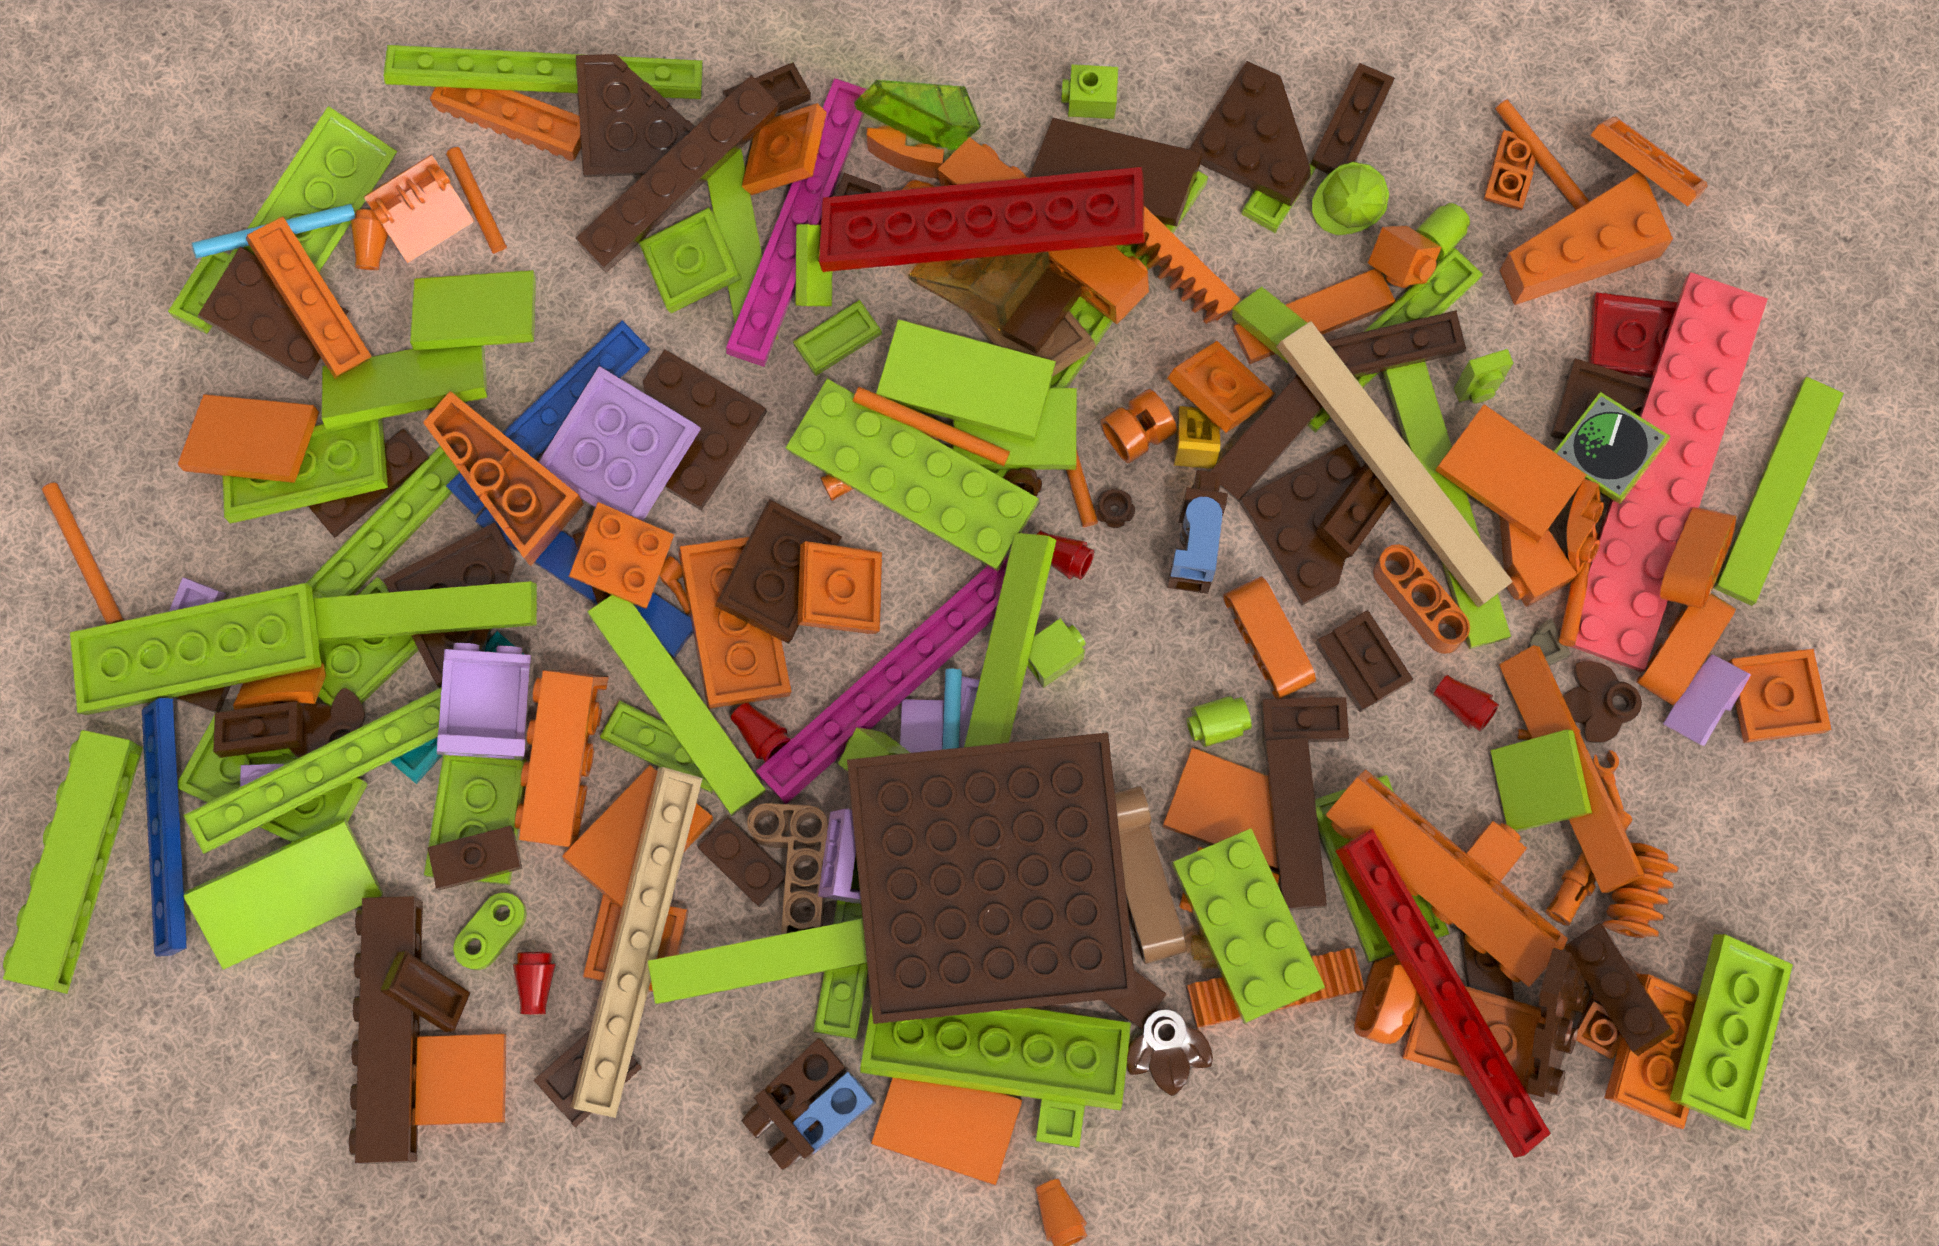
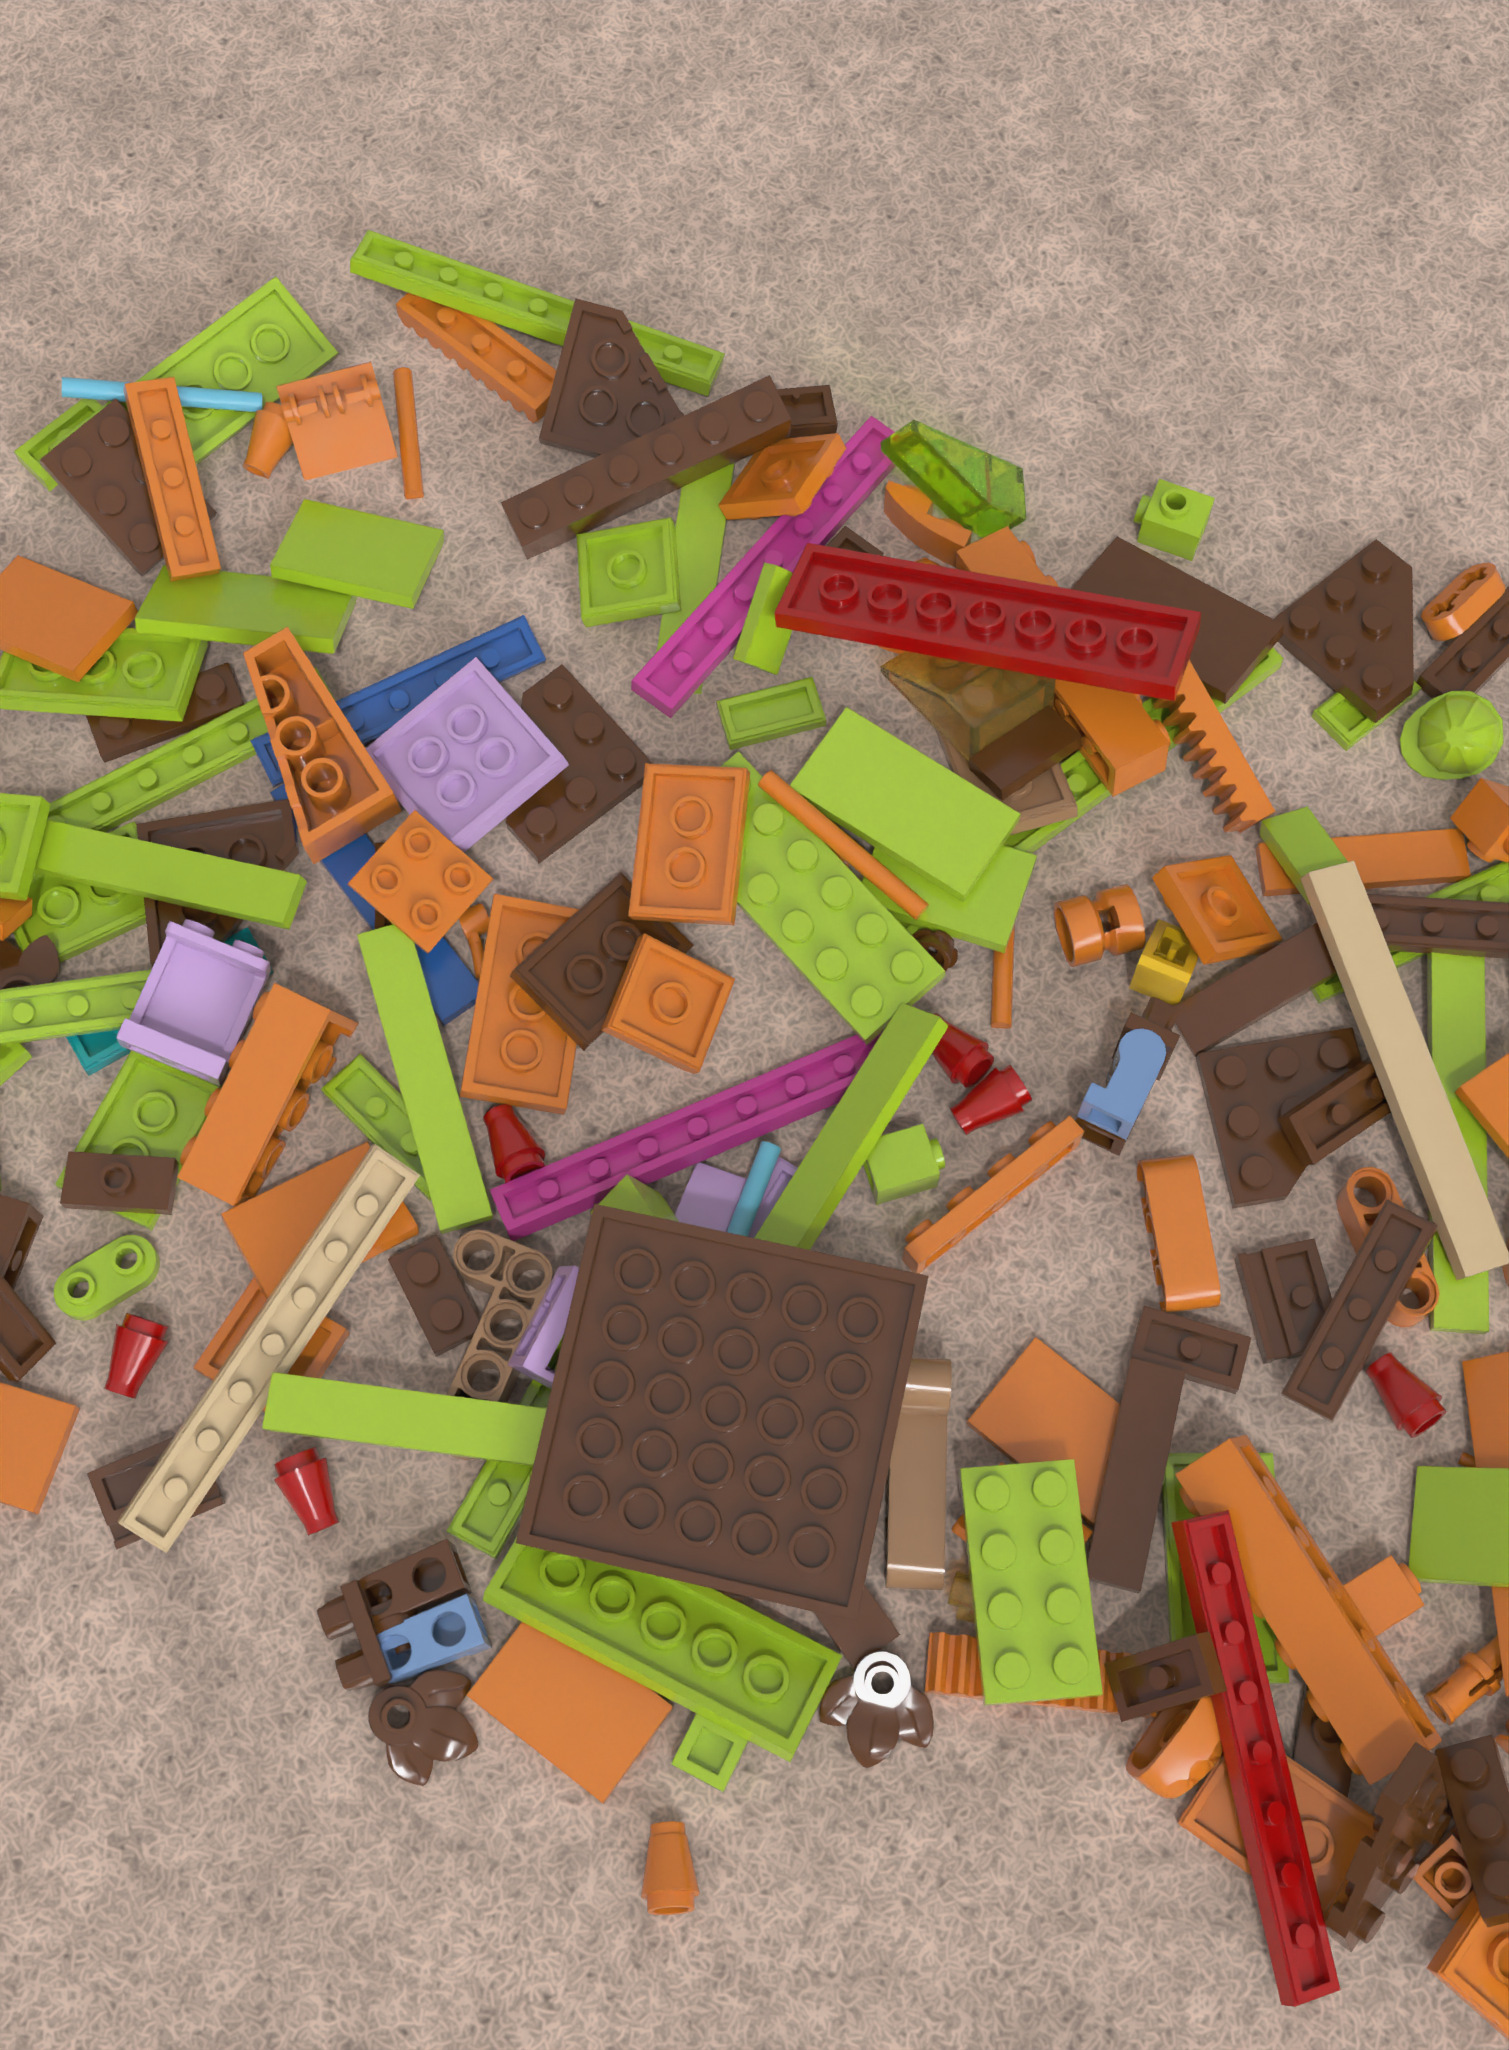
camera: 20 degrees right, 5 degrees down
(700, 1035) = (308, 1489): none -> red cone
(816, 462) = (689, 844): none -> orange tile
(854, 1174) = (432, 1727): none -> reddish brown plate
(1103, 582) = (992, 1100): none -> red cone
(1117, 498) = (1042, 1003): reddish brown plate -> none
(1134, 637) = (1007, 1180): none -> orange plate
(1219, 720) = (1080, 1315): lime brick -> none
(1326, 91) = (1463, 601): none -> orange beam
(1365, 960) = (1165, 1676): none -> reddish brown plate
(1417, 652) = (1359, 1310): none -> reddish brown tile

